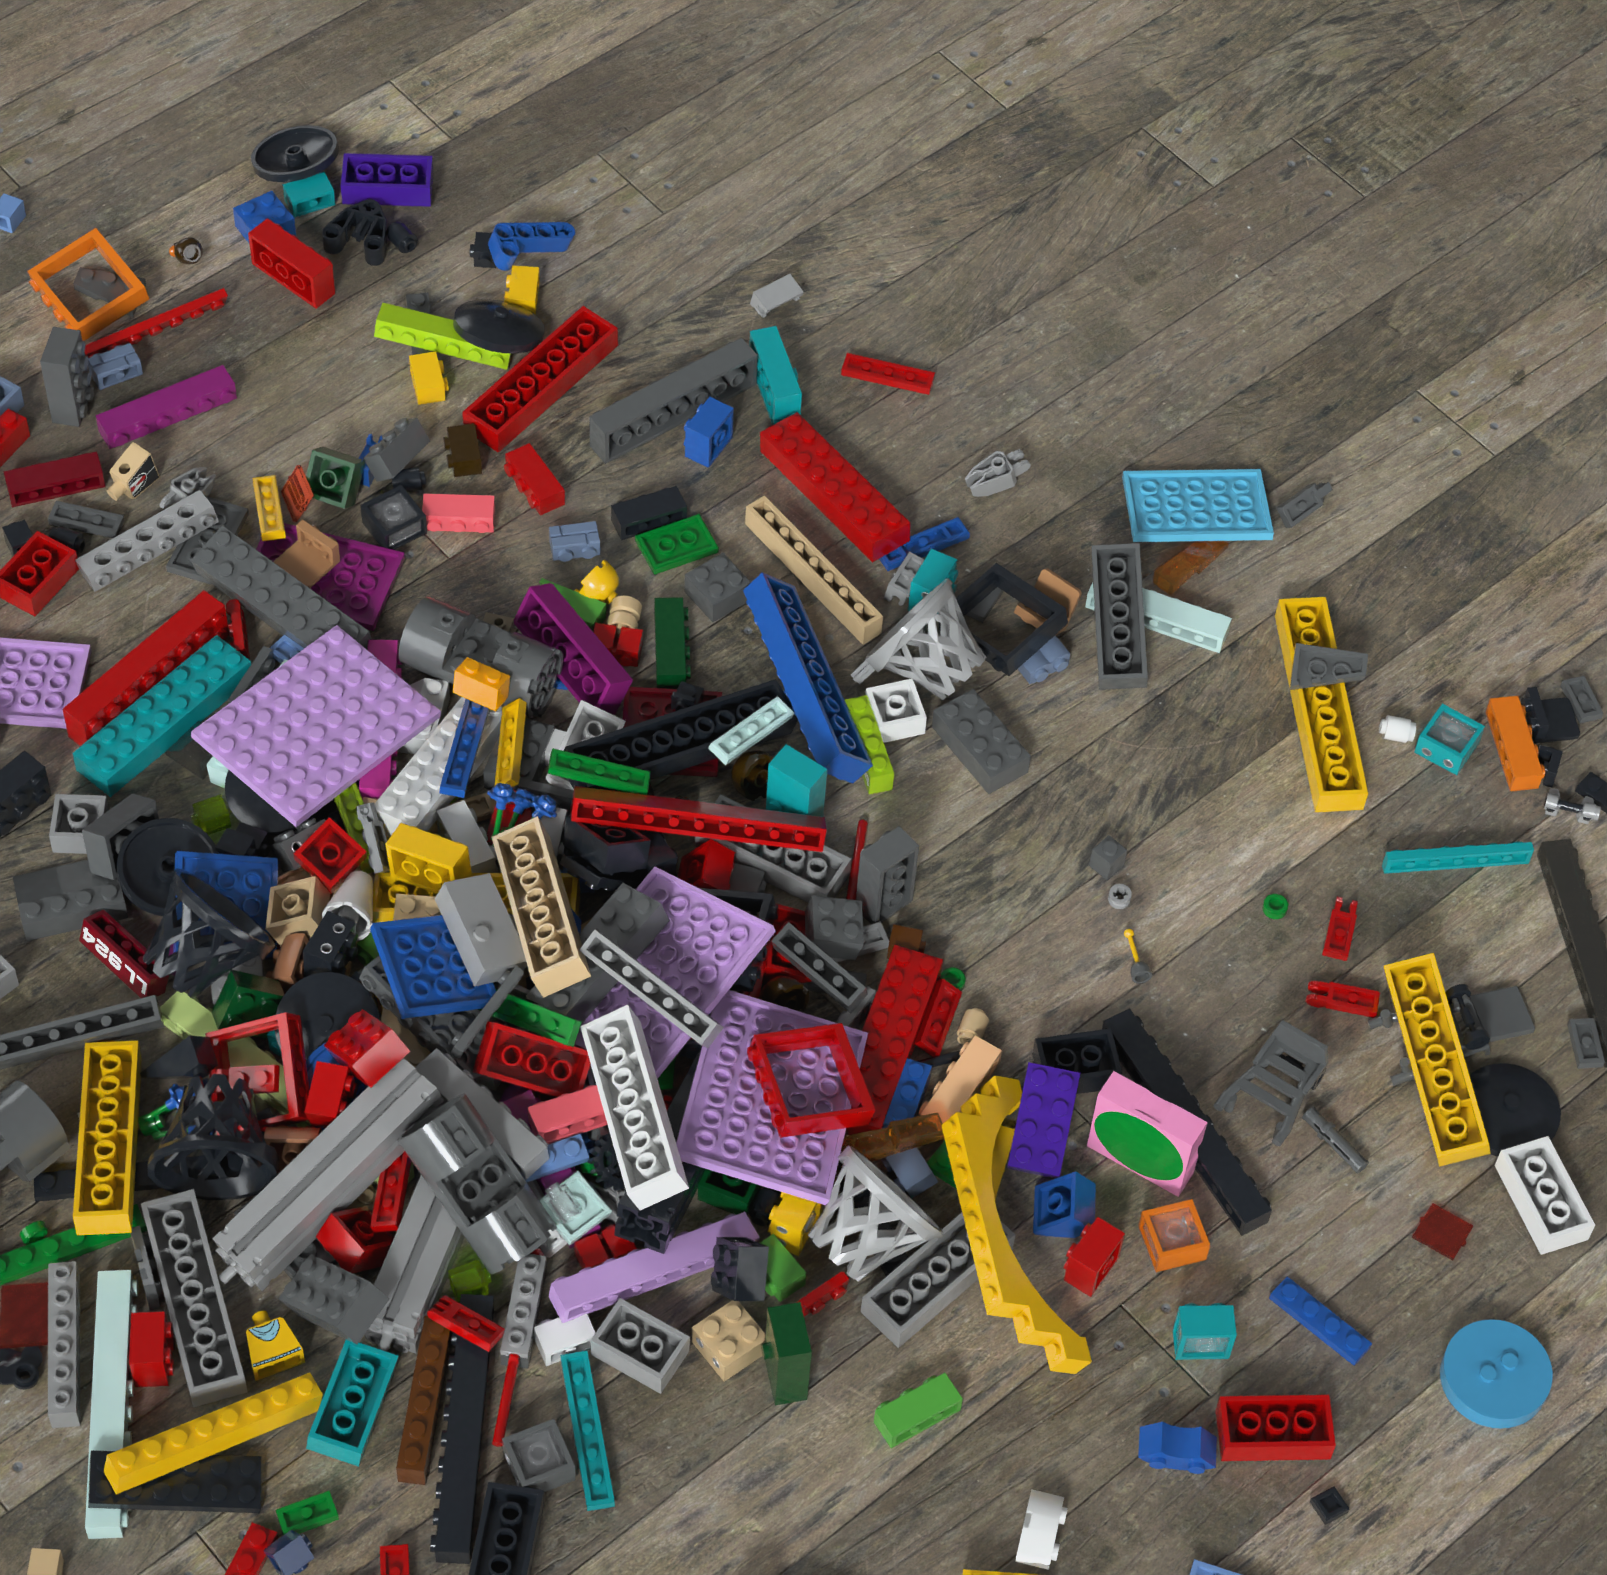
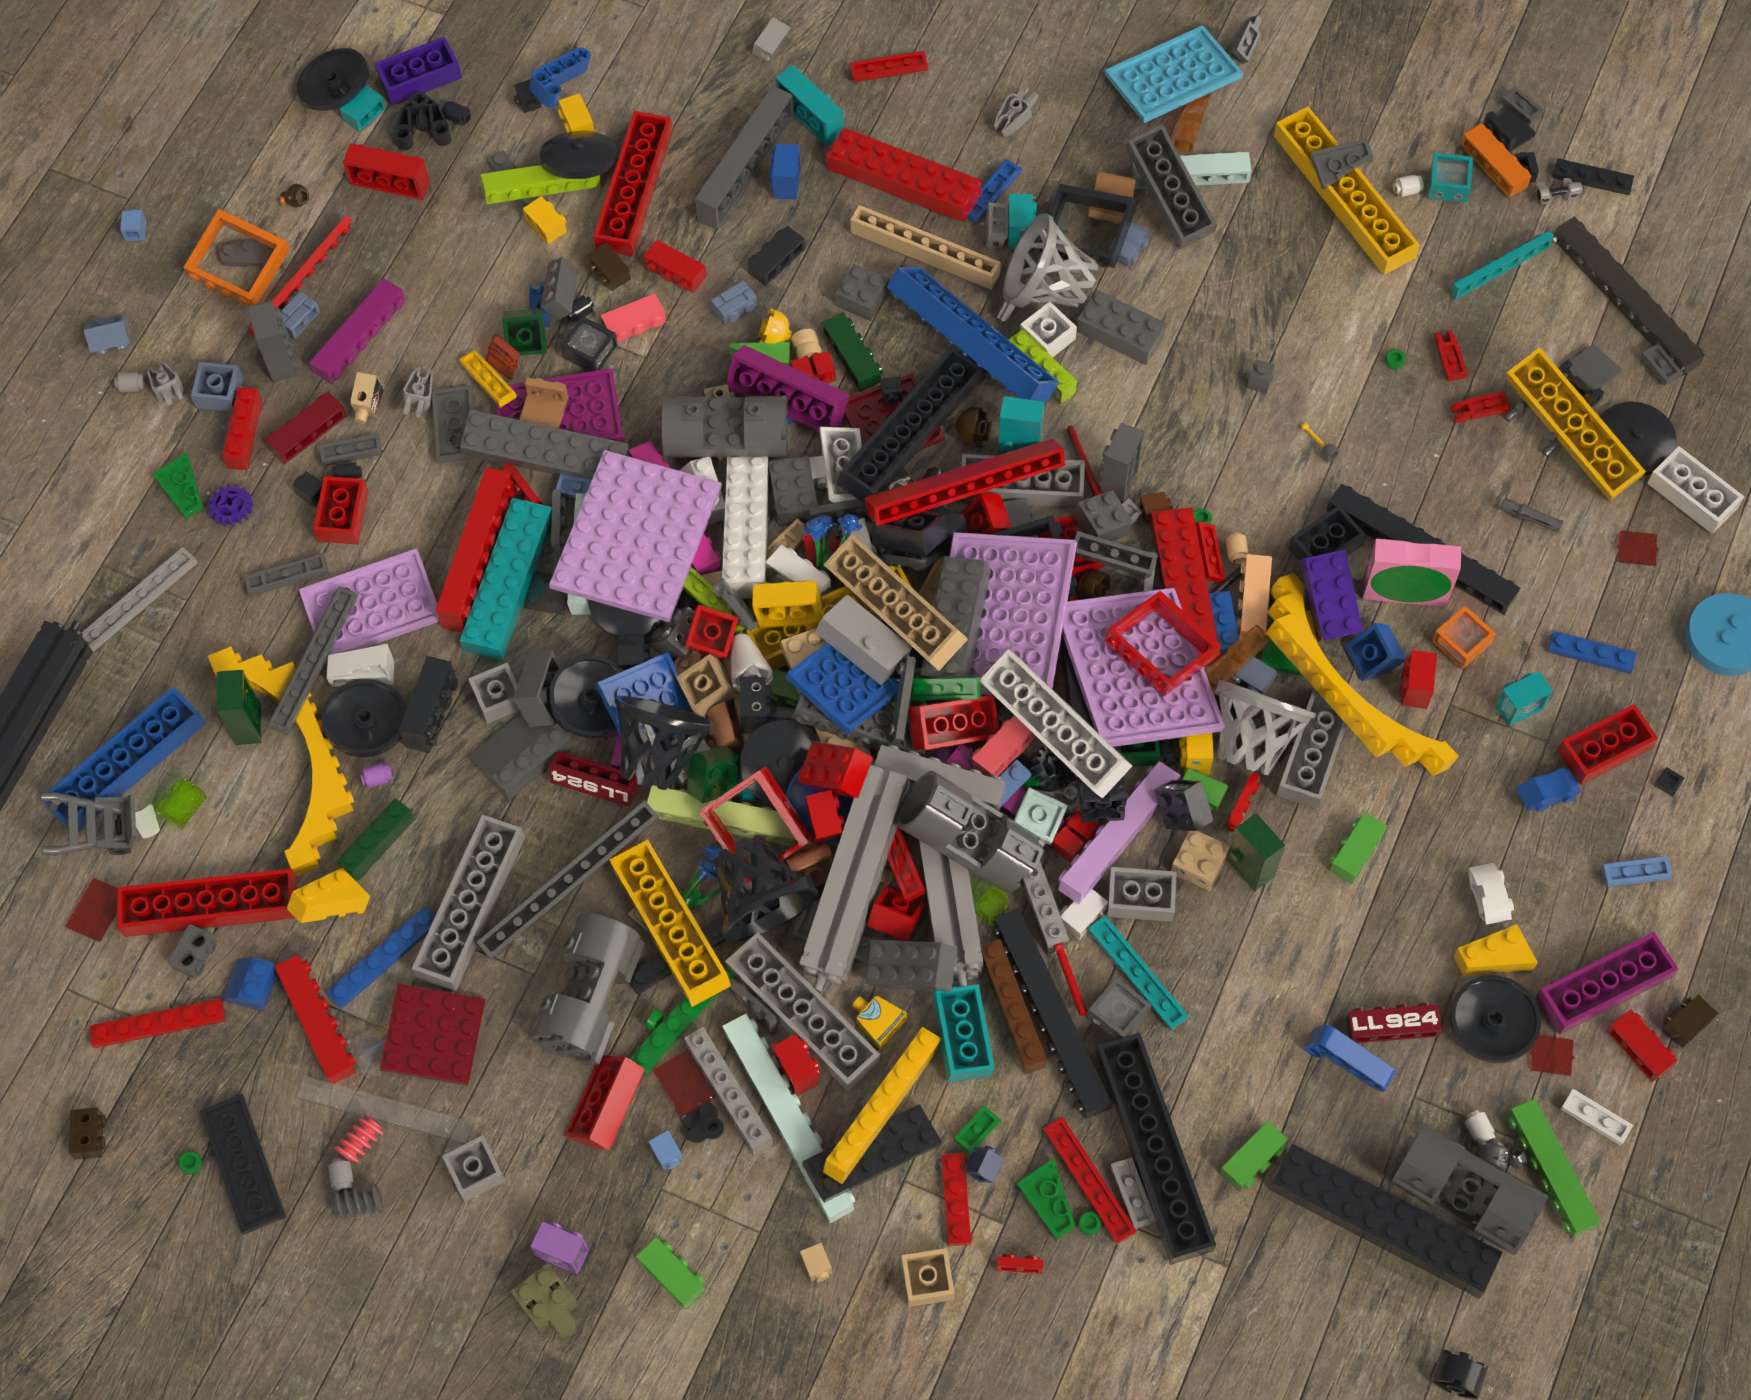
camera: 20 degrees left, 10 degrees up
(147, 540) = (402, 450): light grey brick -> none
(186, 1060) = (698, 836): black slope -> none
(211, 815) = (590, 640): clear neon green brick -> none
(255, 211) = (335, 142): blue brick -> none
(260, 1078) = (764, 826): hinge -> none
(464, 749) = (759, 499): blue plate -> none
(466, 1323) = (1013, 937): red hinge -> none
(481, 684) = (744, 448): light orange brick -> none
(511, 743) = (789, 486): yellow plate -> none
(562, 1202) = (1033, 816): clear brick -> none
(598, 772) = (876, 479): green tile -> none
(651, 988) = (1018, 629): light grey brick -> none
(676, 544) = (809, 271): green tile -> none
(751, 730) = (959, 395): light aqua tile -> none
(1113, 899) = (1285, 396): light grey bush -> none
(1303, 1050) = (1474, 460): dark grey hand -> none

